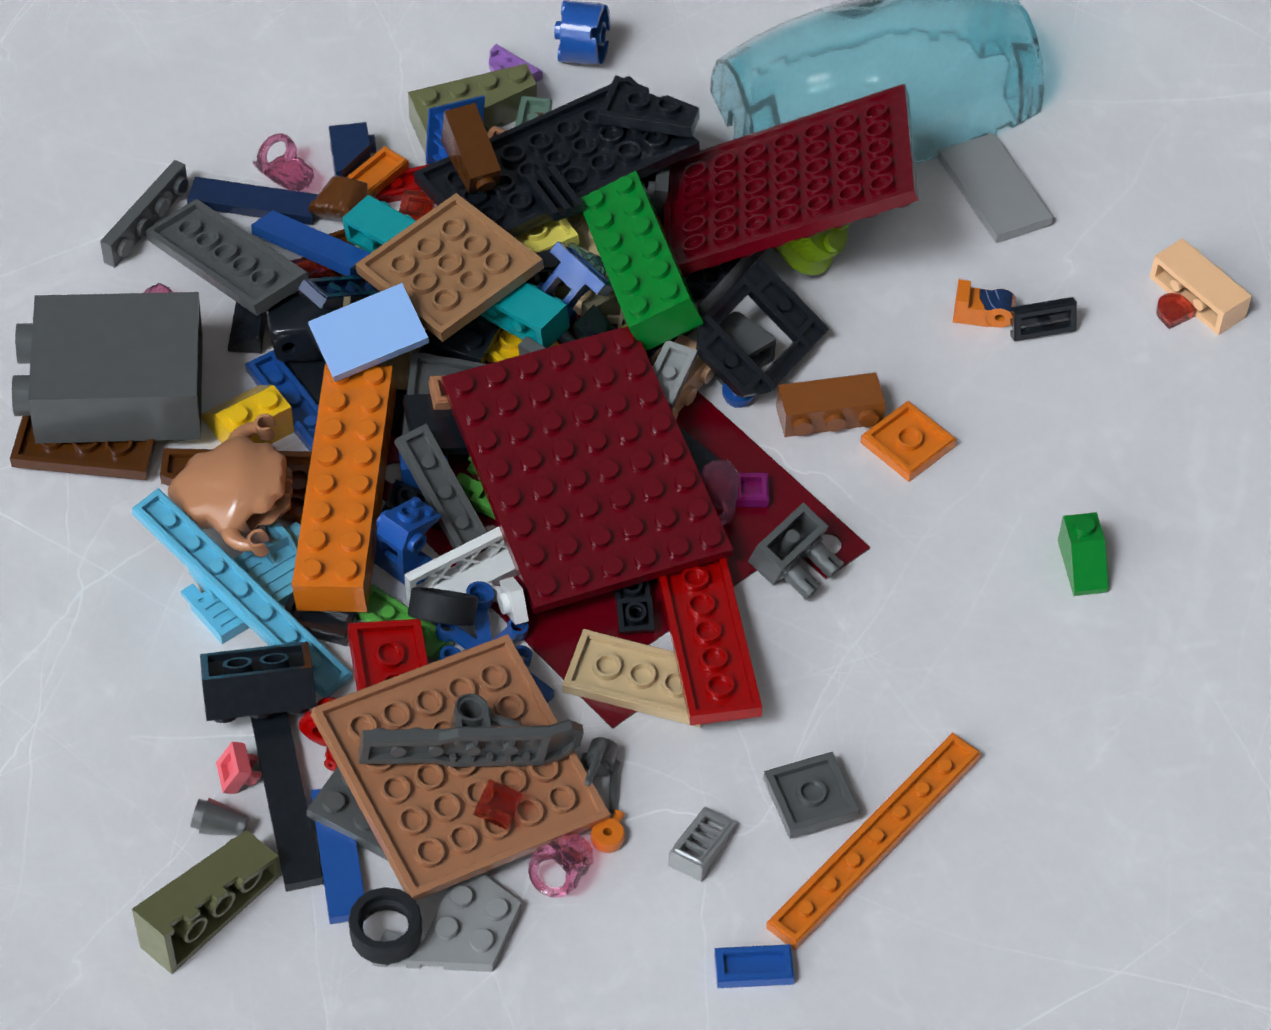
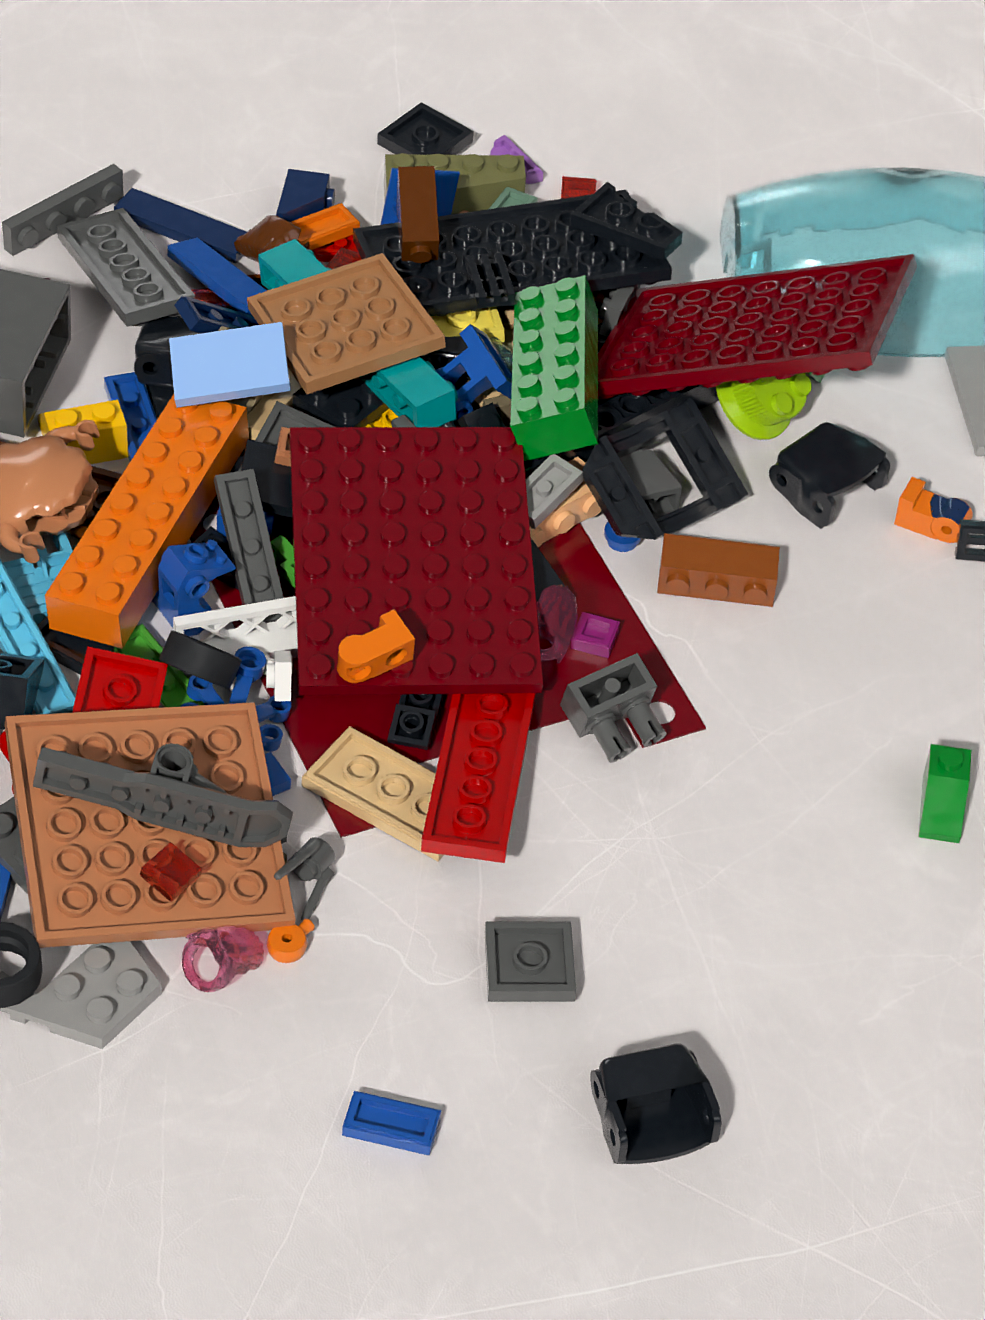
camera: 15 degrees right, 5 degrees down
(246, 331) = (119, 348): black slope -> none
(285, 170) = (233, 205): clear pink piece -> none
(428, 61) = (425, 133): none -> black plate
(578, 82) = (577, 186): none -> clear red tile
(582, 32) = (599, 142): blue brick -> none
(592, 561) = (376, 651): none -> orange leg
(691, 864) = (373, 1002): light grey slope -> none
(873, 841) = (581, 1030): orange tile -> none
(885, 289) = (826, 465): none -> black piece
(908, 441) = (793, 630): orange tile -> none
(959, 889) = (655, 1105): none -> black piece

